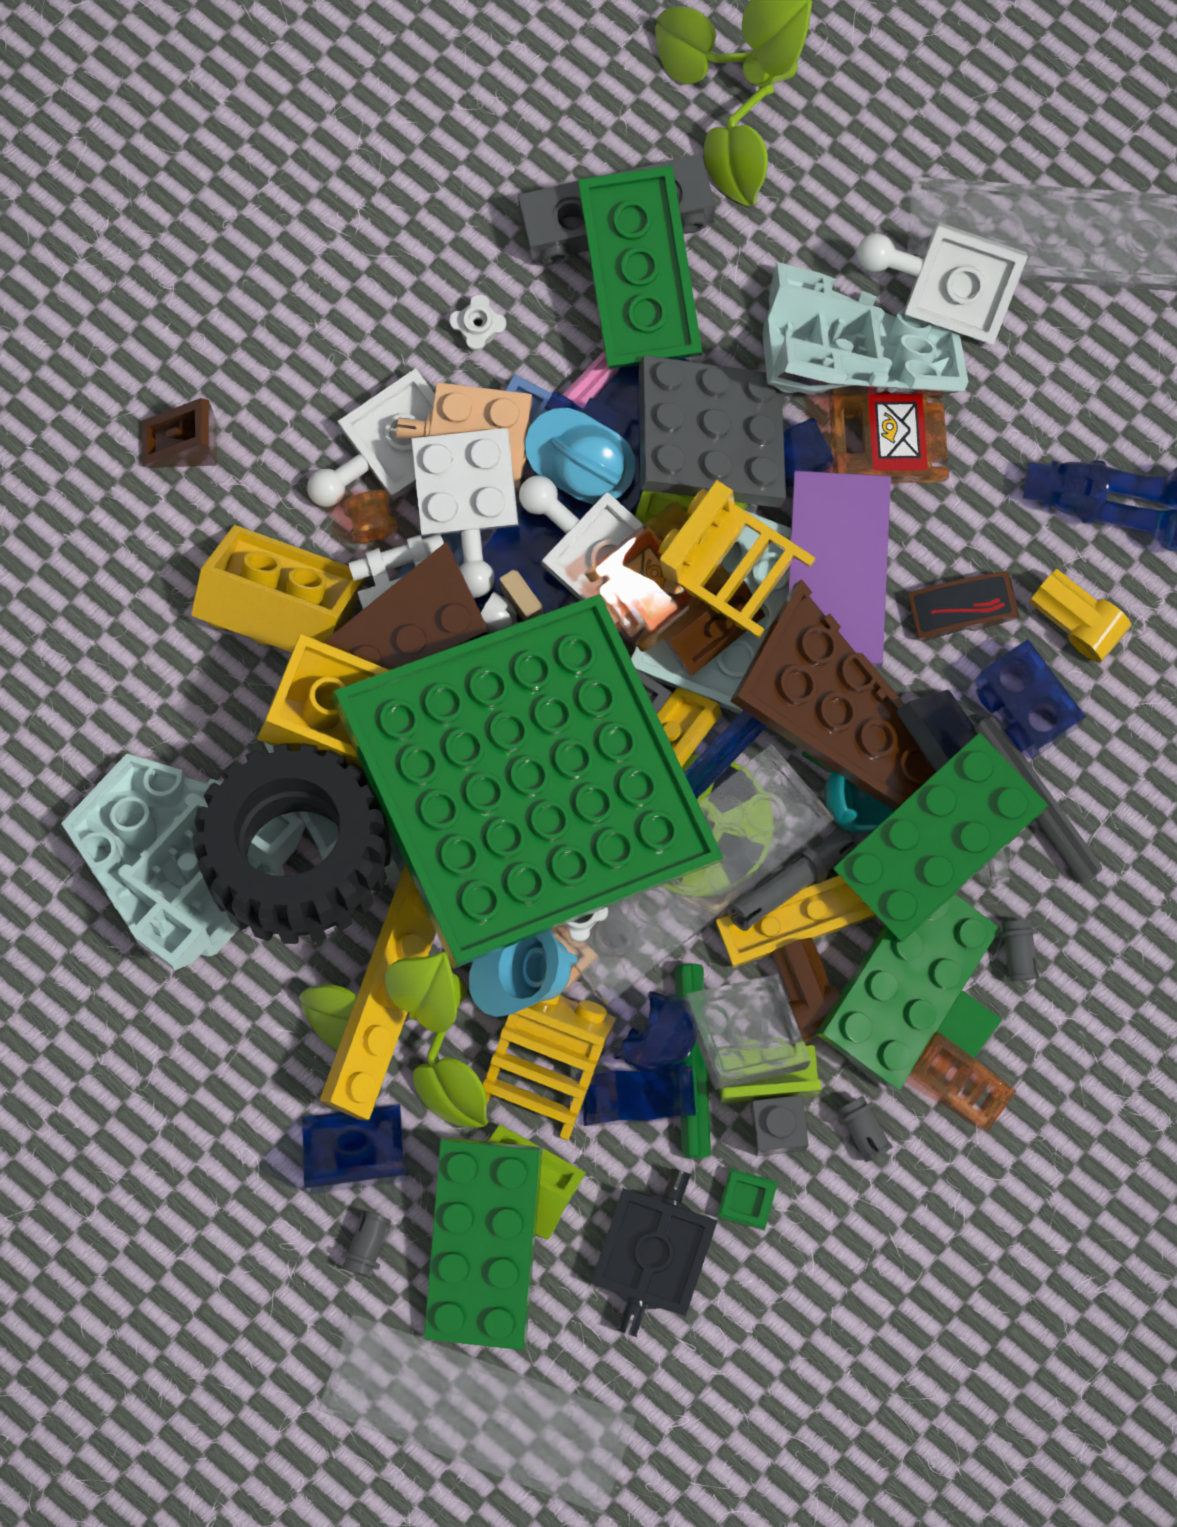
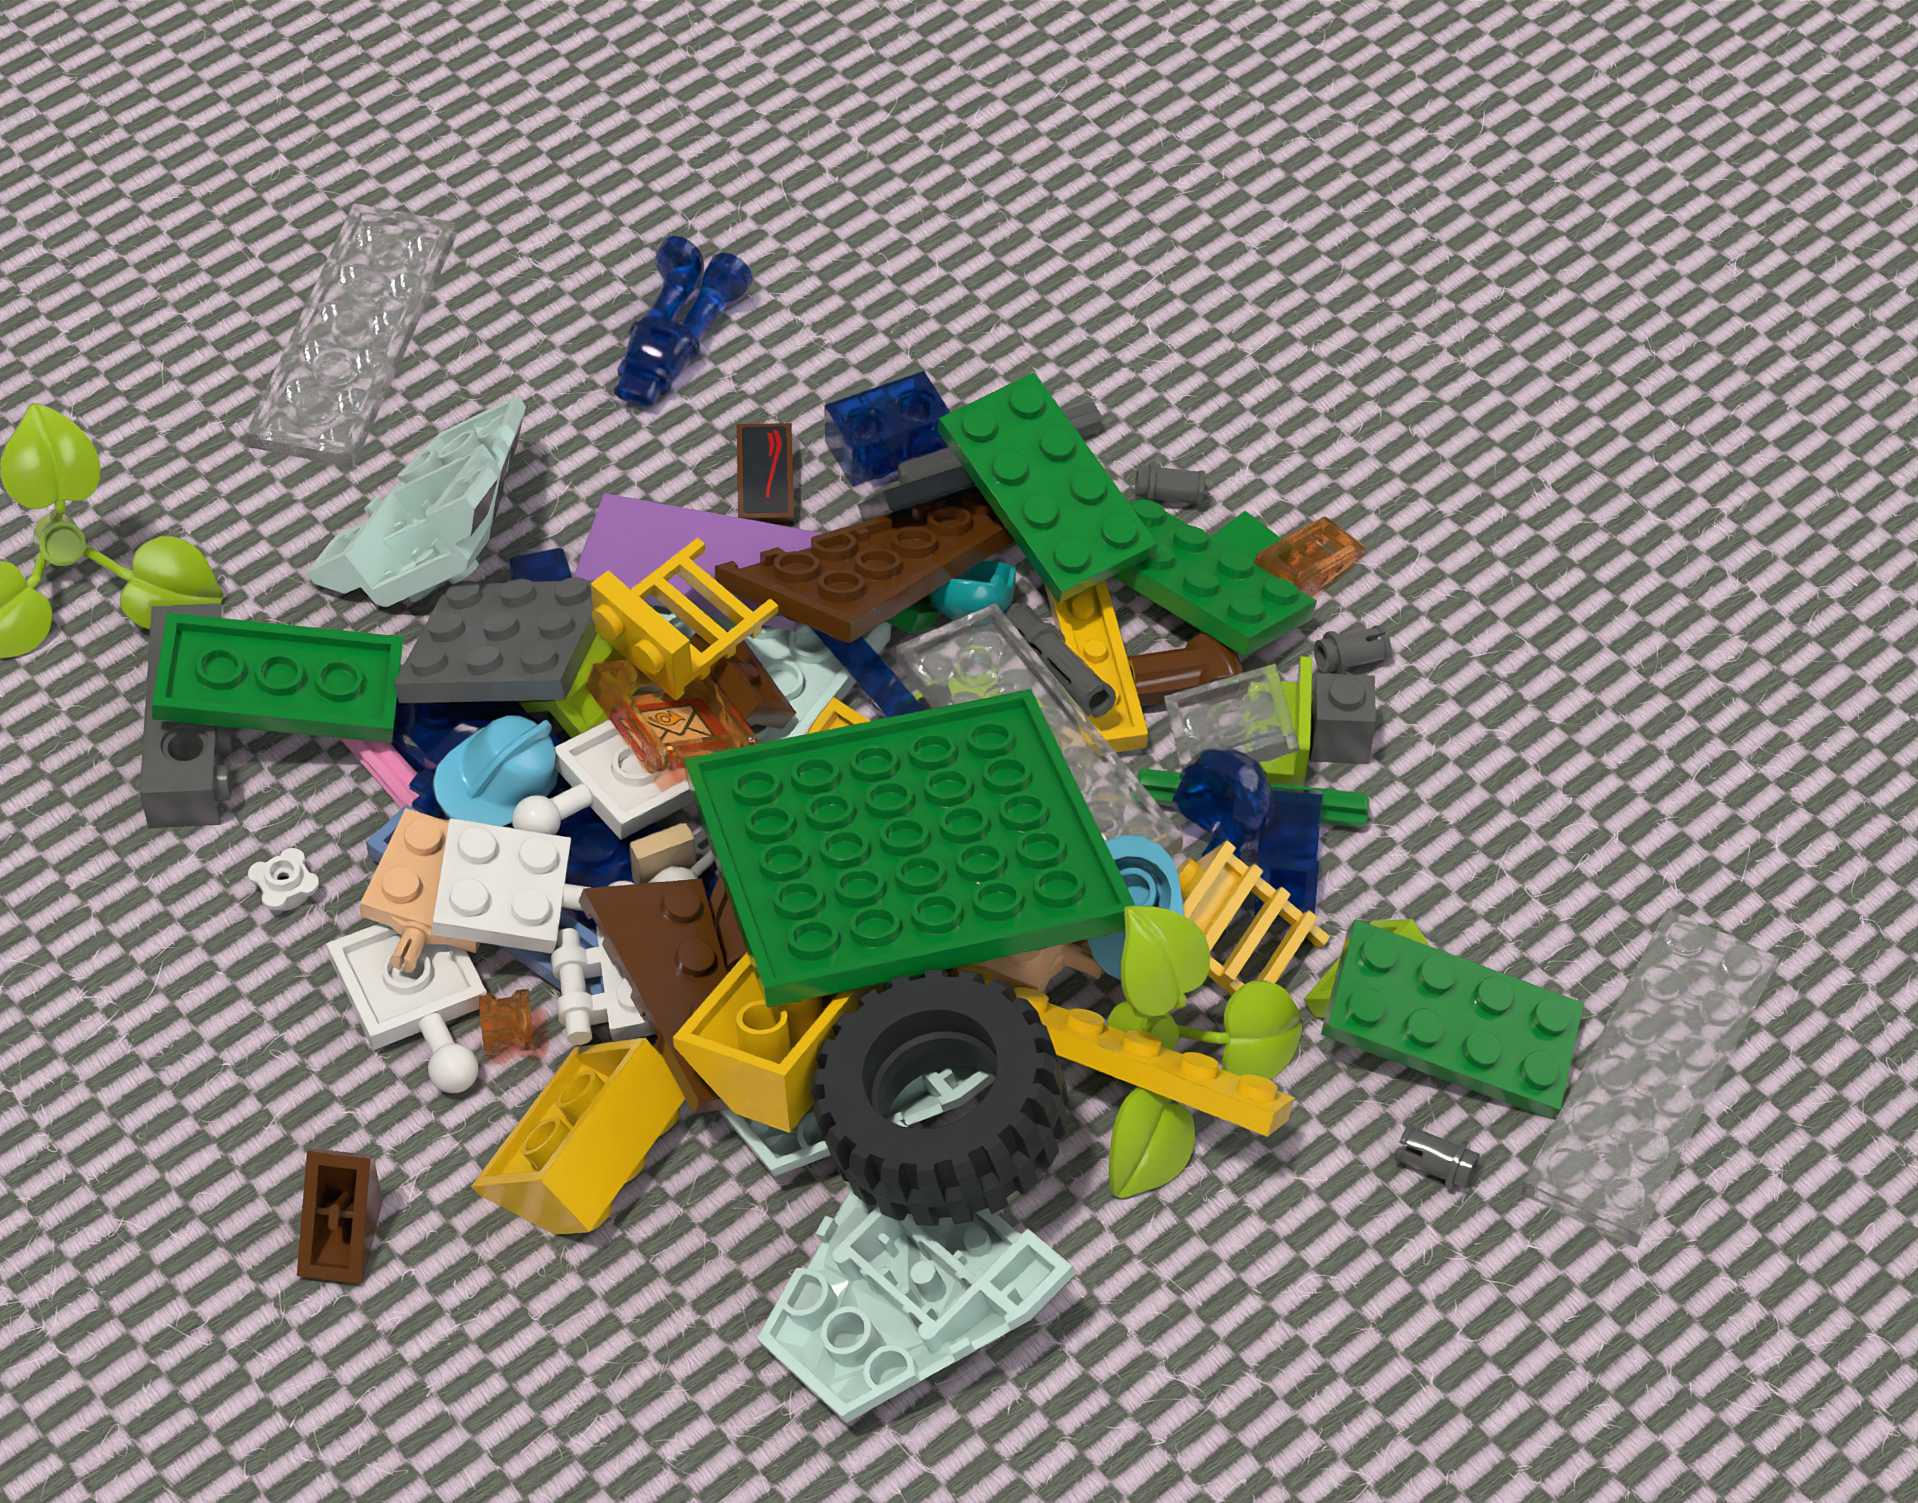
camera: 85 degrees left, 25 degrees down
(354, 1152) = (1324, 1153): clear blue slope -> none
(654, 1252) = (1475, 864): black plate -> none
(747, 1199) = (1419, 774): green tile -> none
(898, 436) = (550, 495): container -> none
(958, 283) = (386, 402): white plate -> none
(1090, 623) = (812, 365): yellow piece -> none

